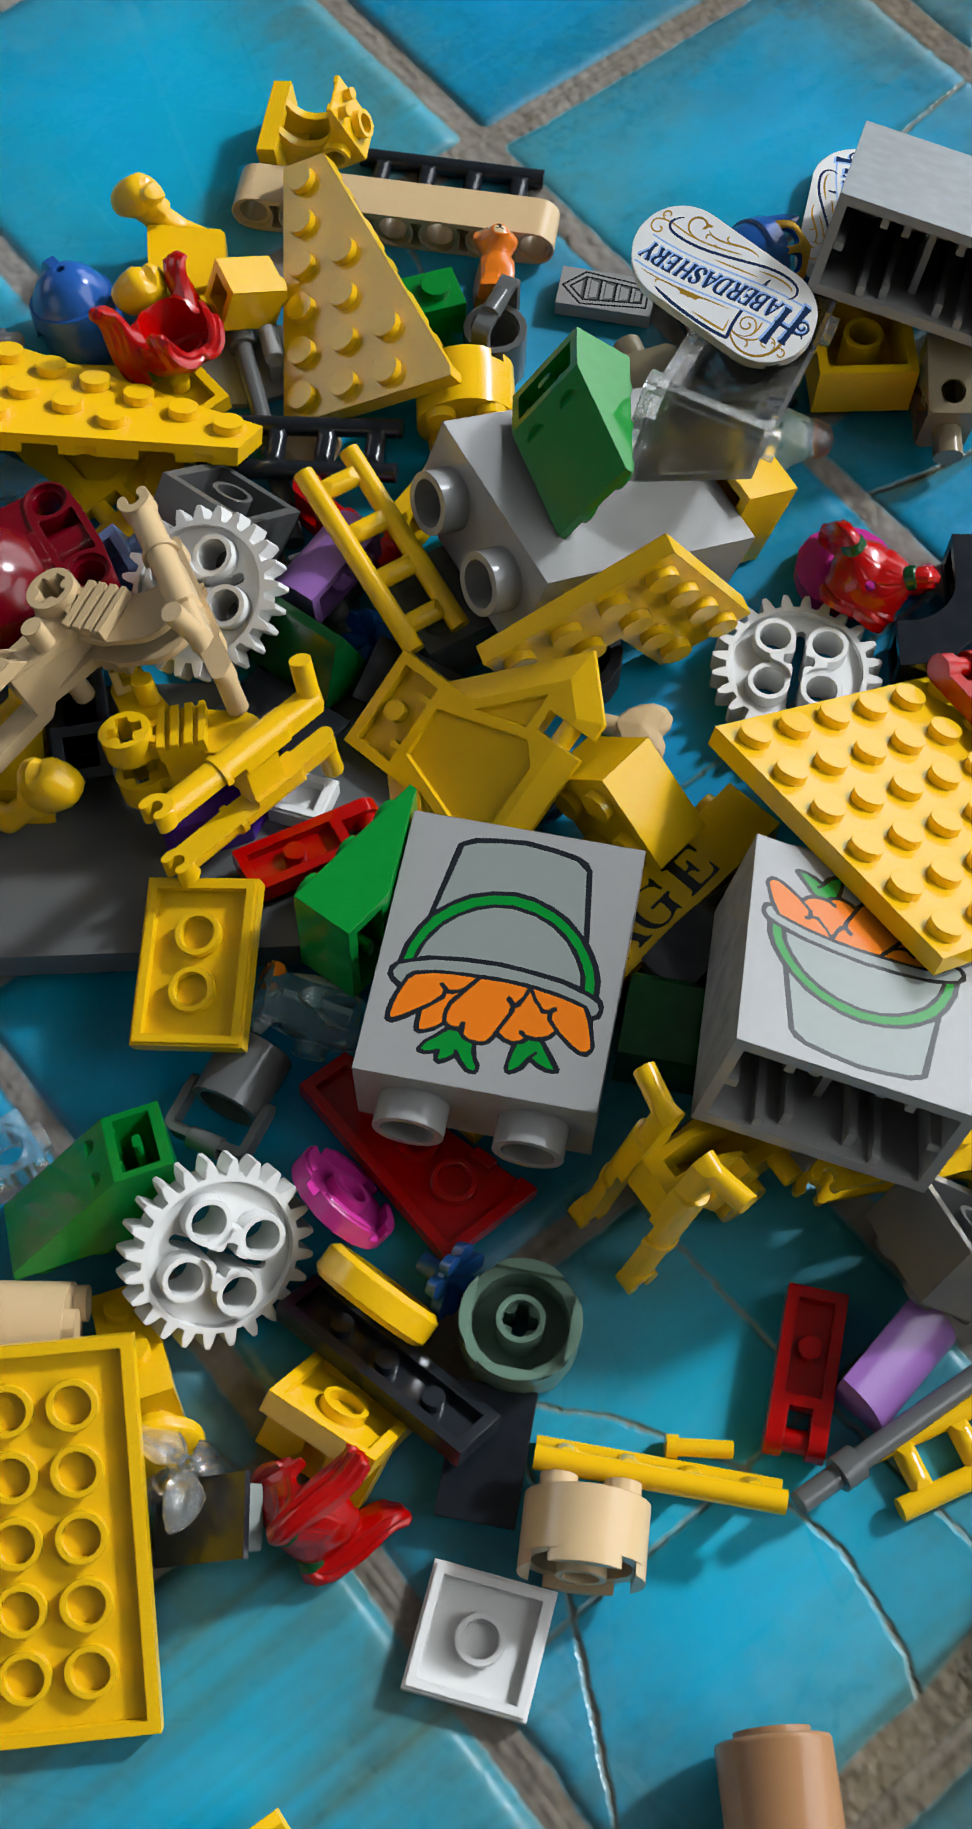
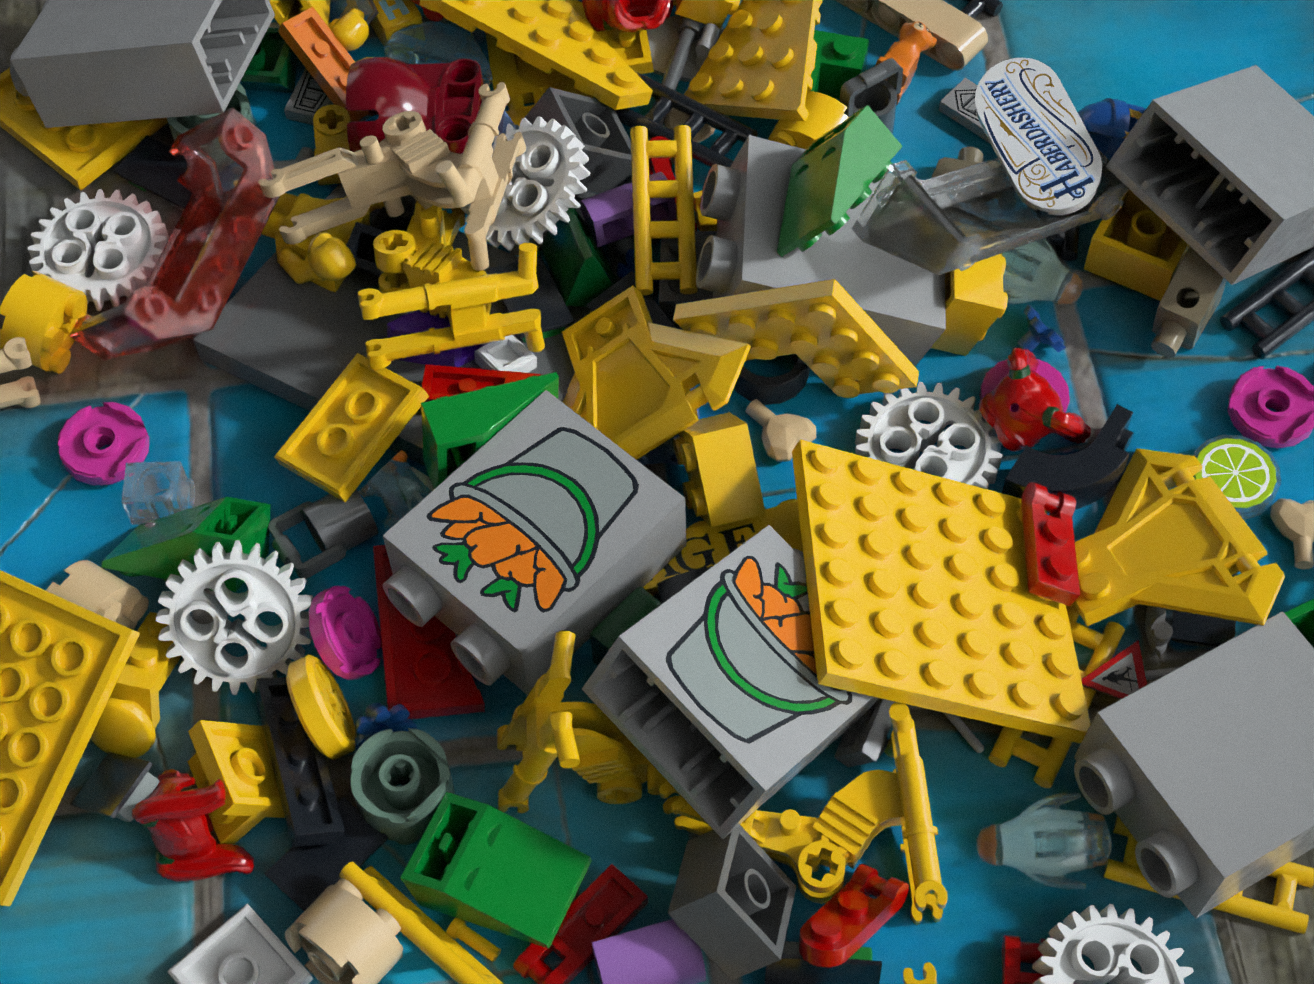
camera: 35 degrees right, 5 degrees down
(178, 1480) = (107, 757): clear plant -> none
(687, 1363) = (494, 871): none -> green slope
(817, 497) = (1039, 333): none -> blue plant

